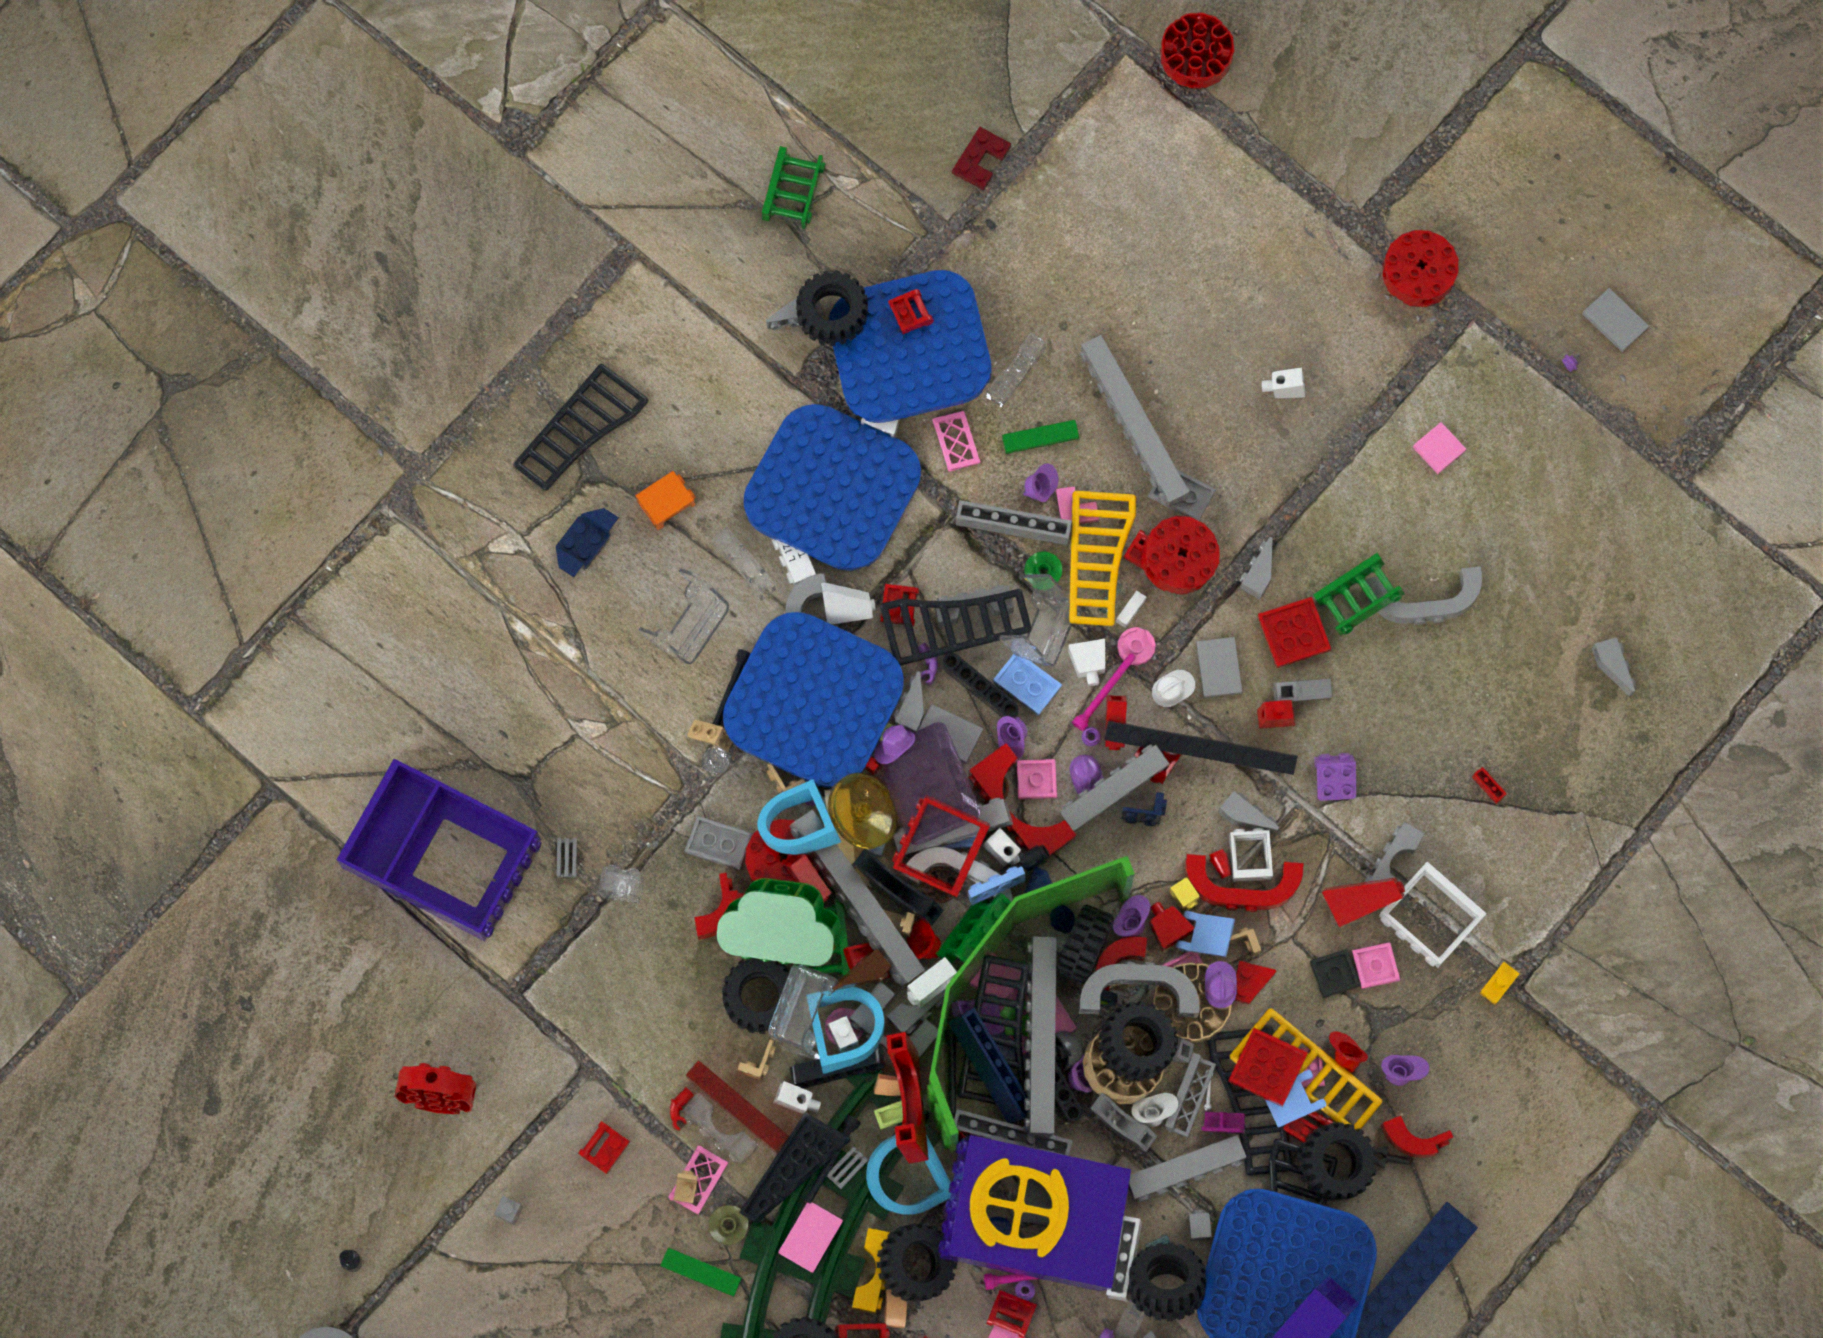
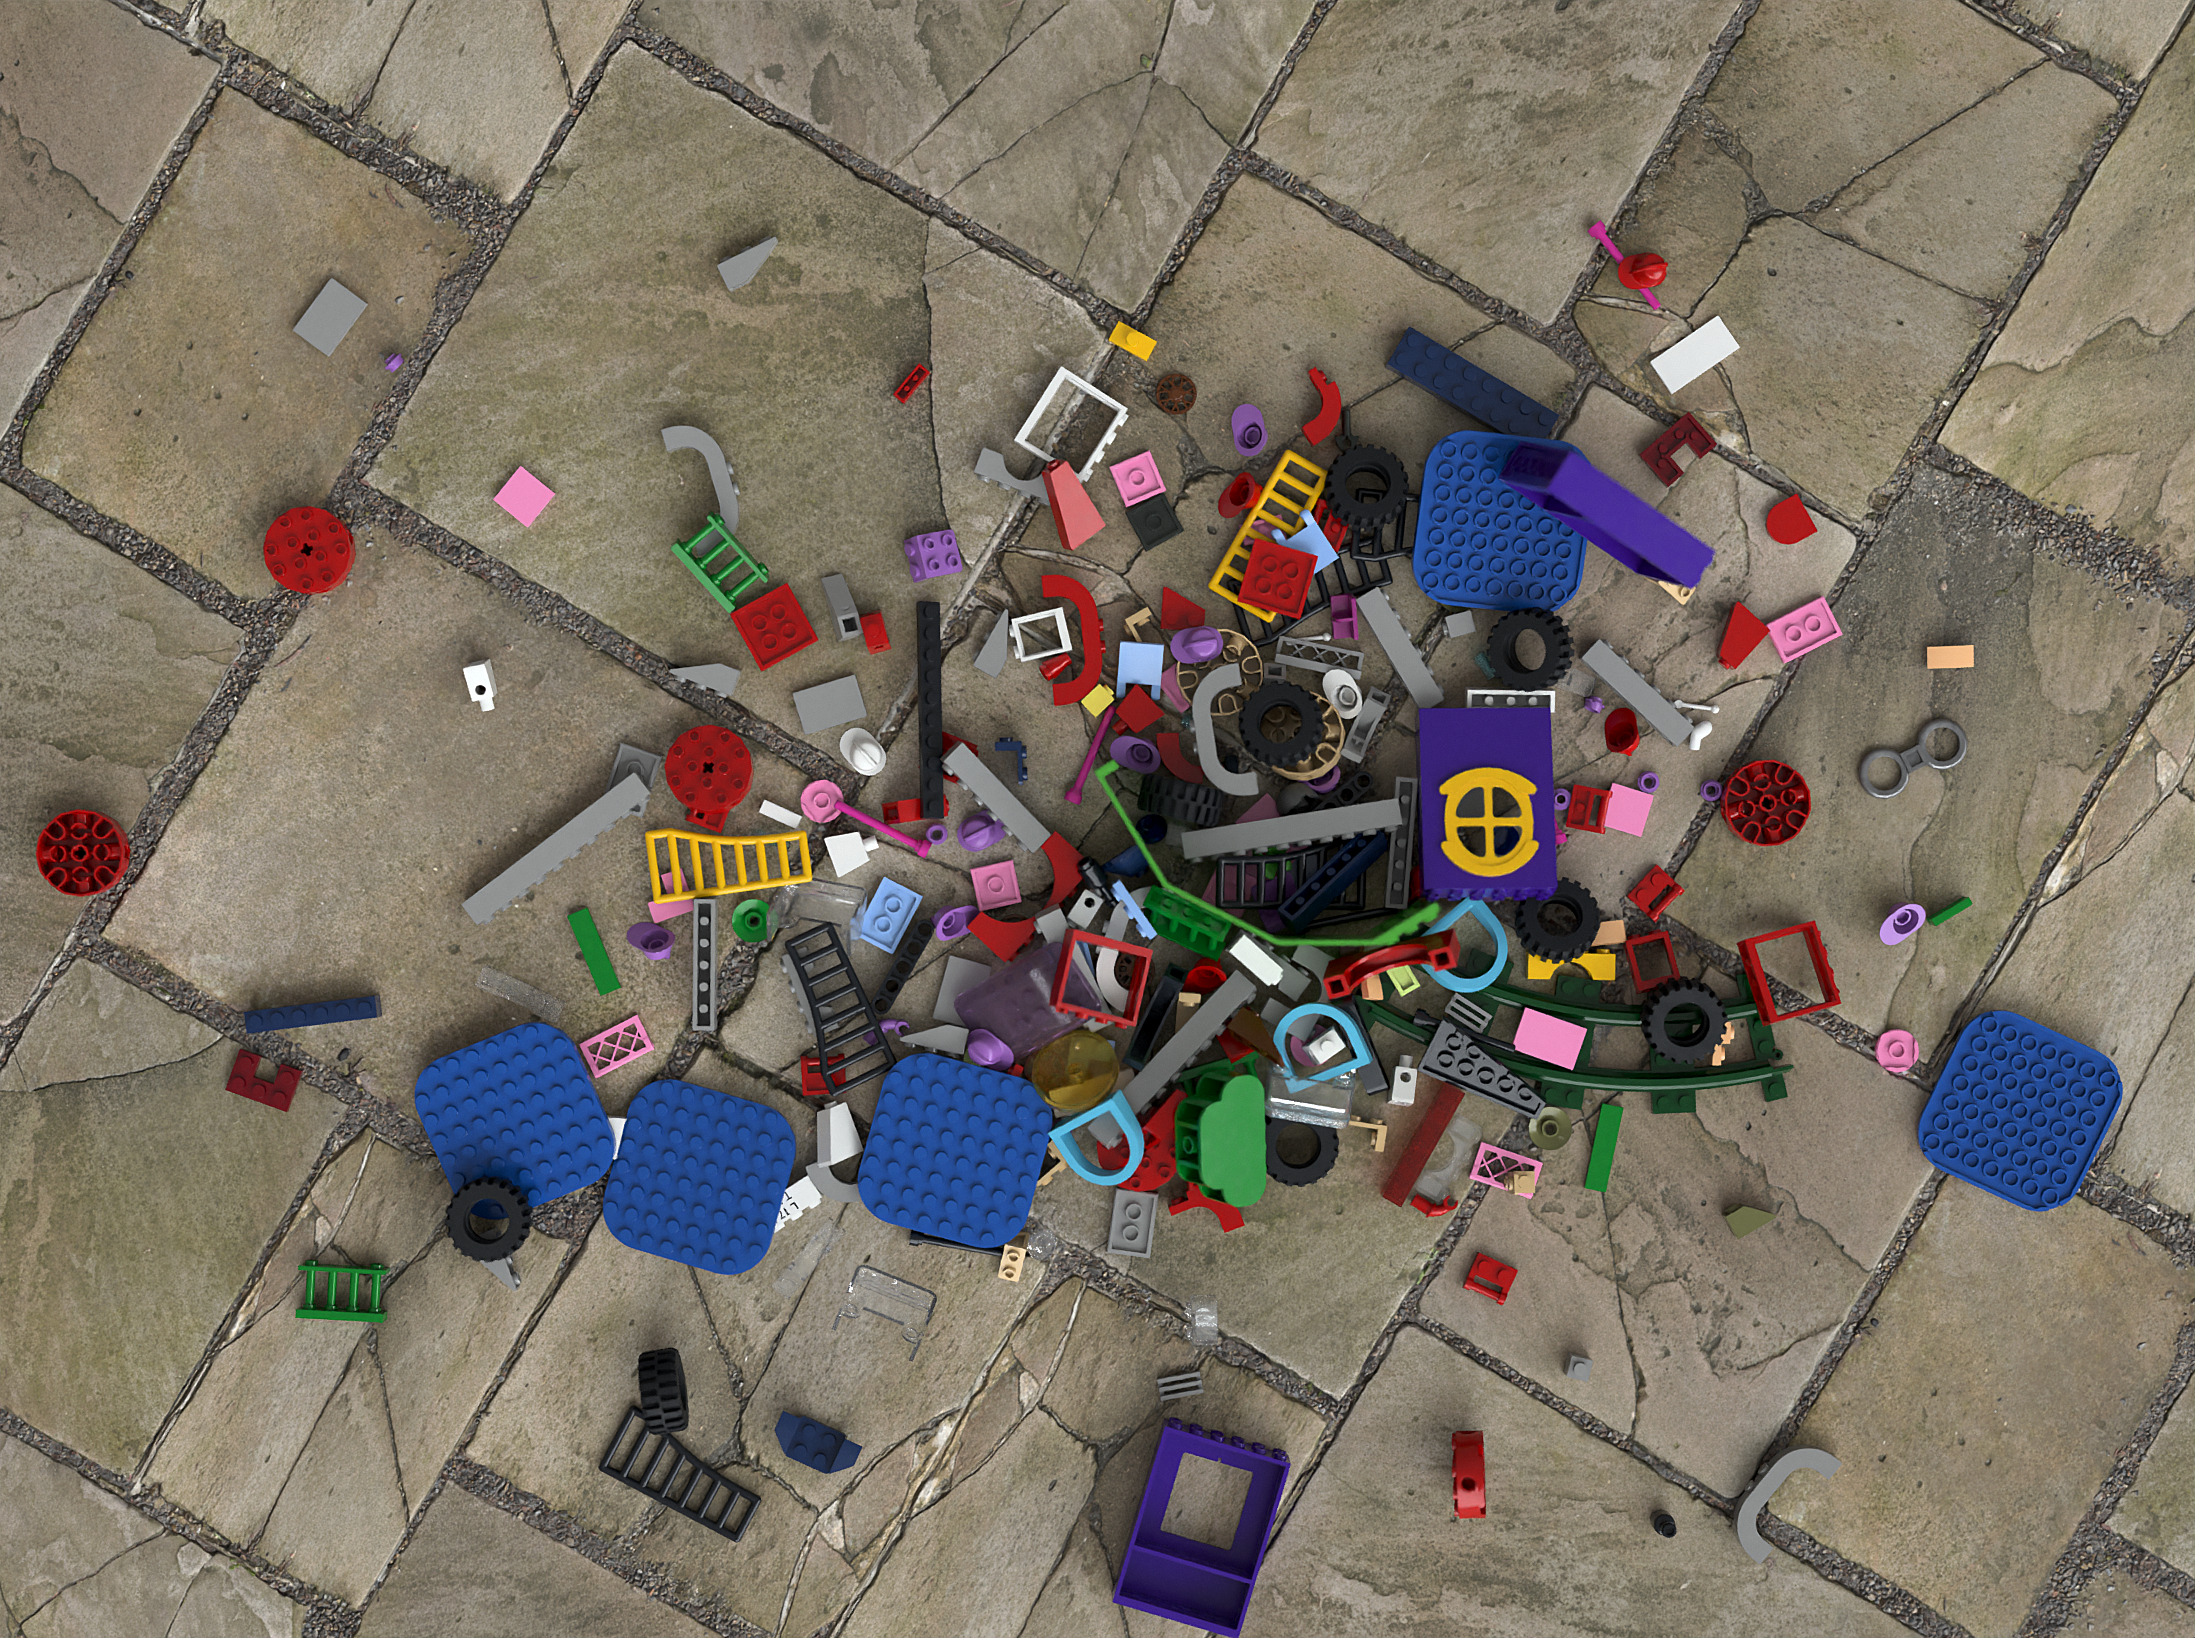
camera: 105 degrees left, 15 degrees up
(657, 420) = (663, 1391): none -> black tyre
(665, 499) = (748, 1361): orange panel -> none
(904, 313) = (479, 1134): red plate -> none
(1030, 204) = (313, 1014): none -> dark blue brick
(1105, 858) = (1075, 793): none -> dark pink piece
(1446, 1013) = (1176, 394): none -> reddish brown wheel

